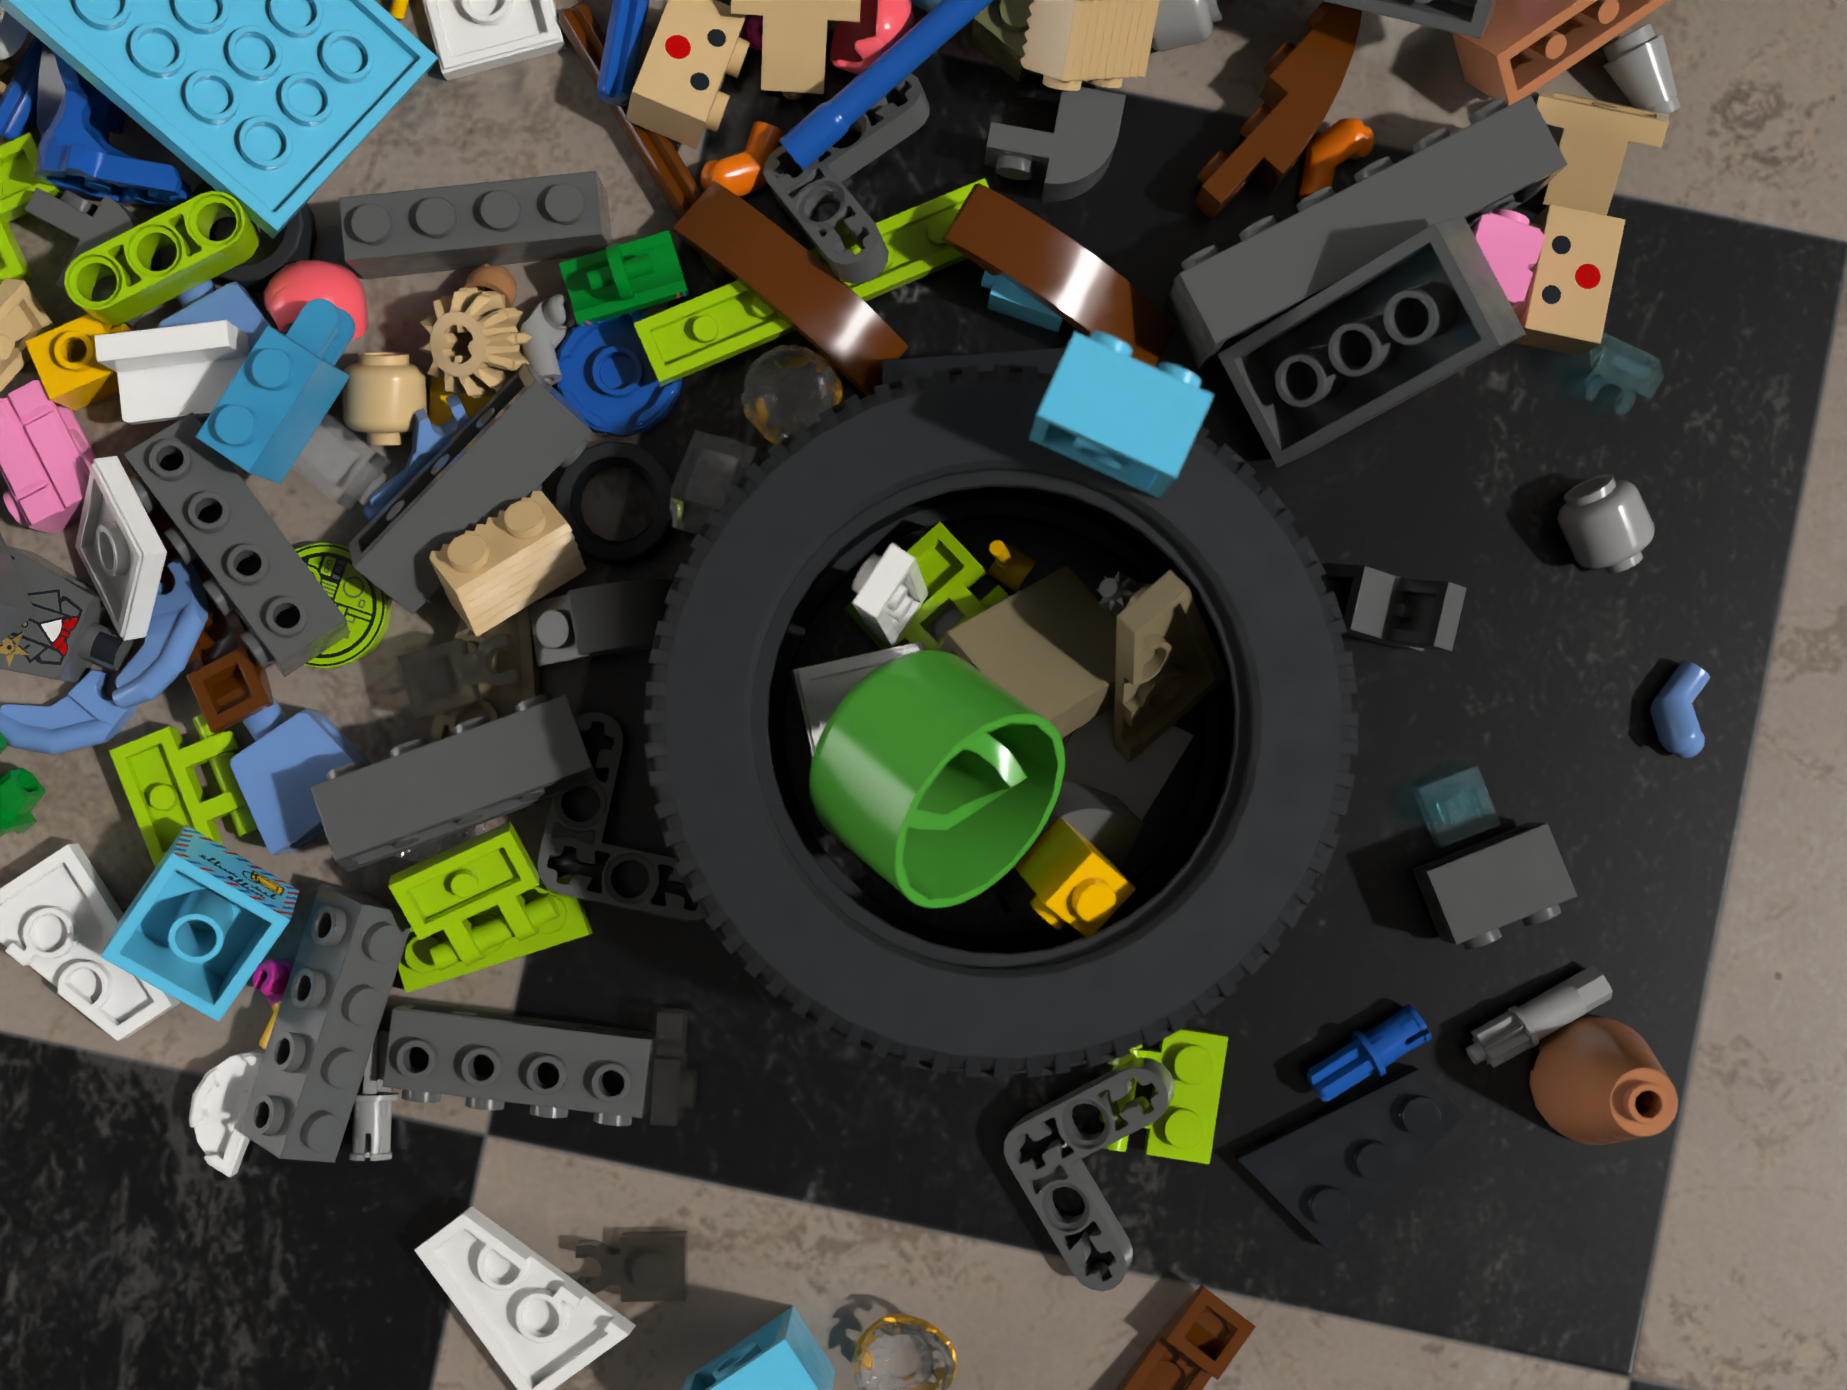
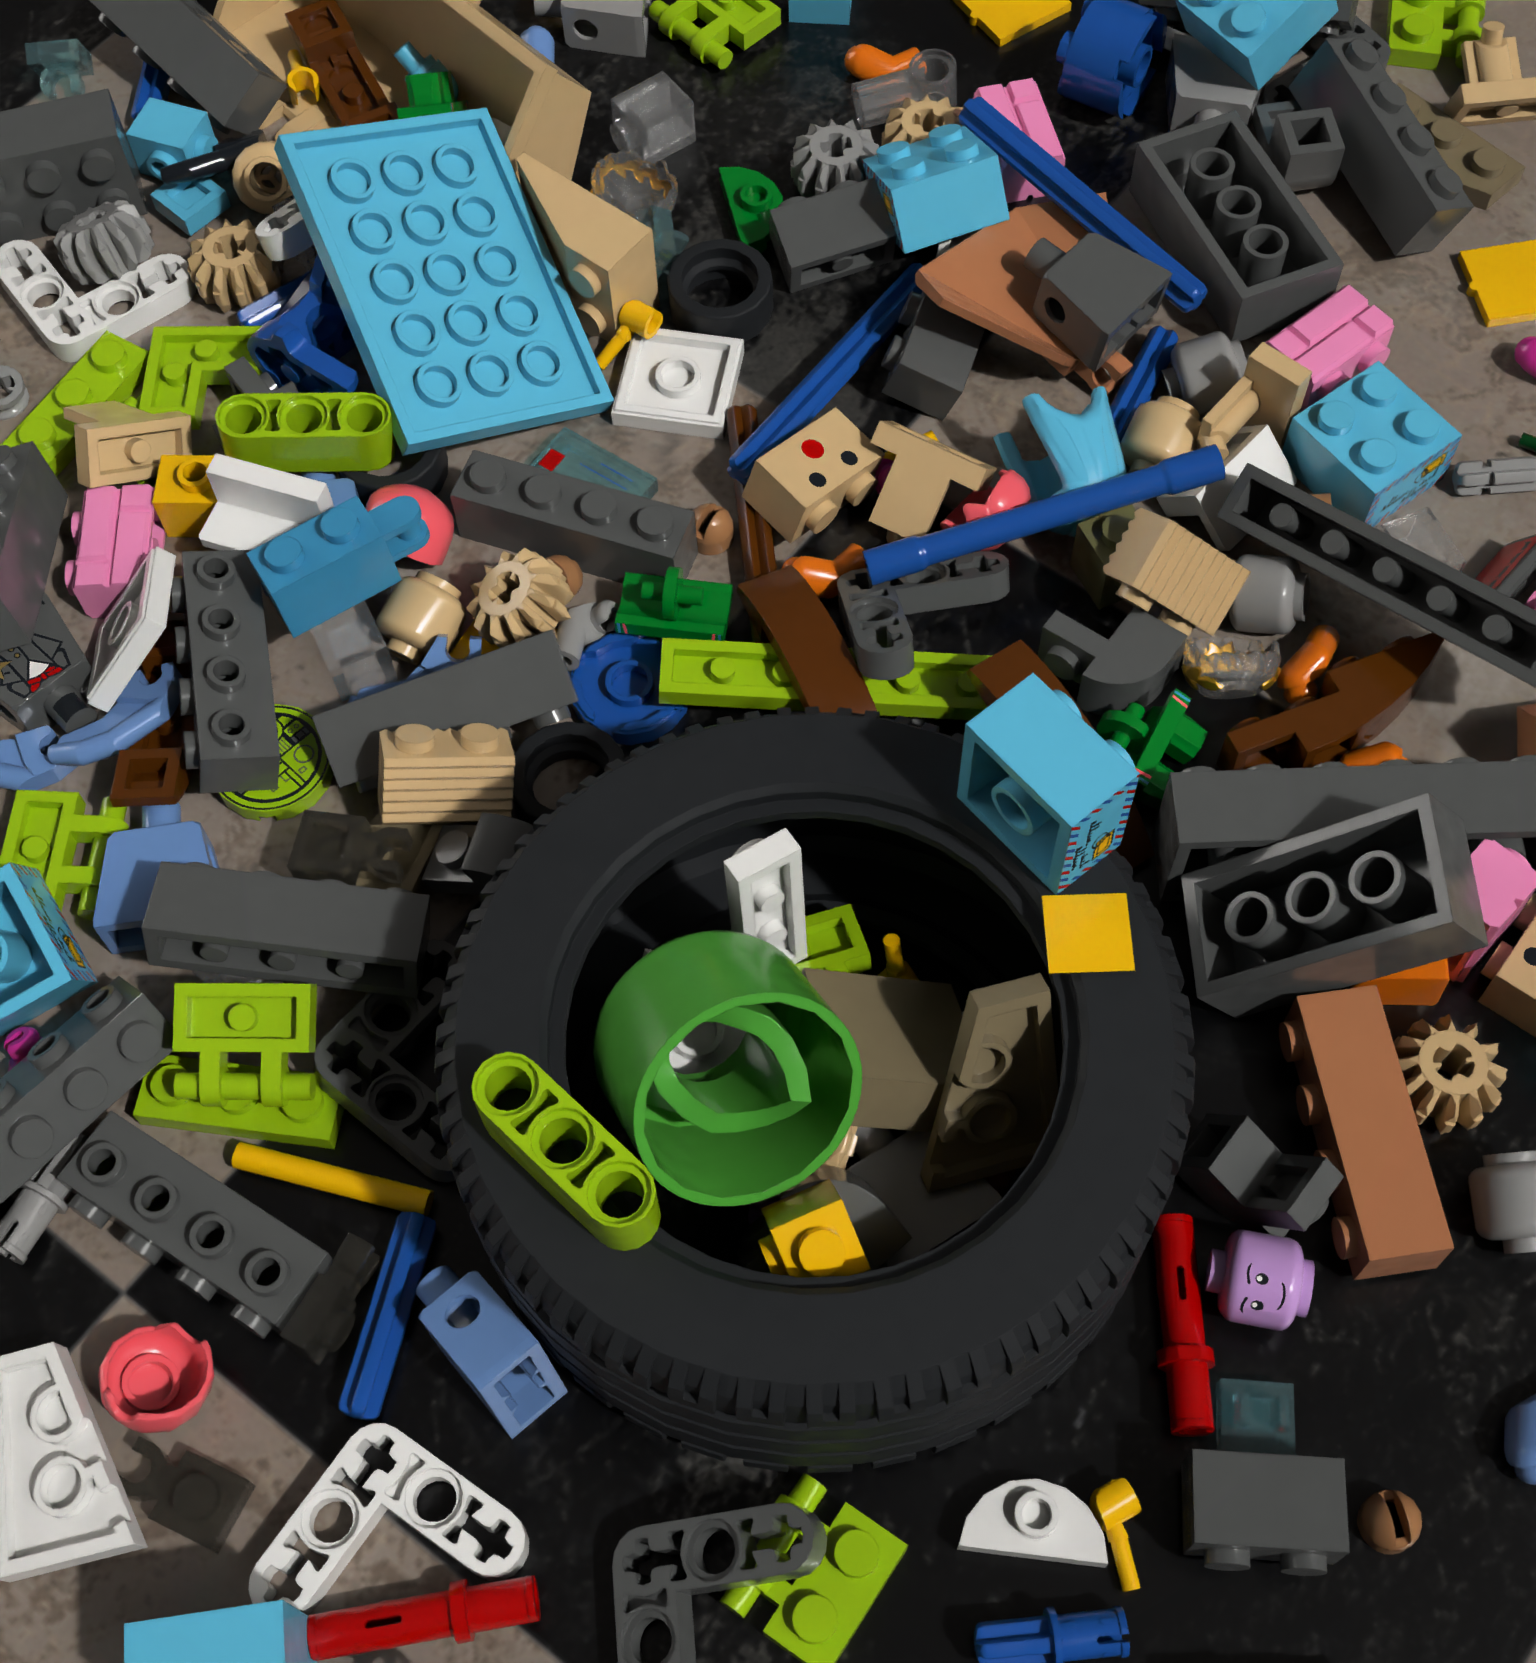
camera: 30 degrees right, 25 degrees down
(459, 152) = (585, 460): none -> clear light blue tile
(564, 1198) = (156, 1378): none -> coral hair
(608, 962) = (332, 1179): none -> yellow bar
(621, 162) = (719, 532): none -> medium nougat hinge
(720, 1053) = (387, 1316): none -> blue axle
(808, 1189) = (392, 1492): none -> white beam
(821, 946) = (555, 1116): none -> lime beam
(831, 1067) = (489, 1347): none -> medium blue torso
(901, 1254) = (424, 1618): none -> red pin
(1125, 223) = (1162, 731): none -> green hips
(1172, 100) = (1230, 666): none -> clear hair
(1201, 523) = (1088, 933): none -> yellow sticker
(1243, 63) = (1308, 663): none -> orange arm
(1316, 970) = (1035, 1523): none -> white plate
(1372, 928) = (1111, 1507): none -> yellow hand
(1385, 783) = (1184, 1348): none -> red pin
(1422, 694) = (1260, 1279): none -> lavender head
(1460, 523) = (1367, 1128): none -> nougat brick
(1524, 417) = (1473, 1074): none -> tan gear
(1580, 845) = (1377, 1524): none -> medium nougat hinge

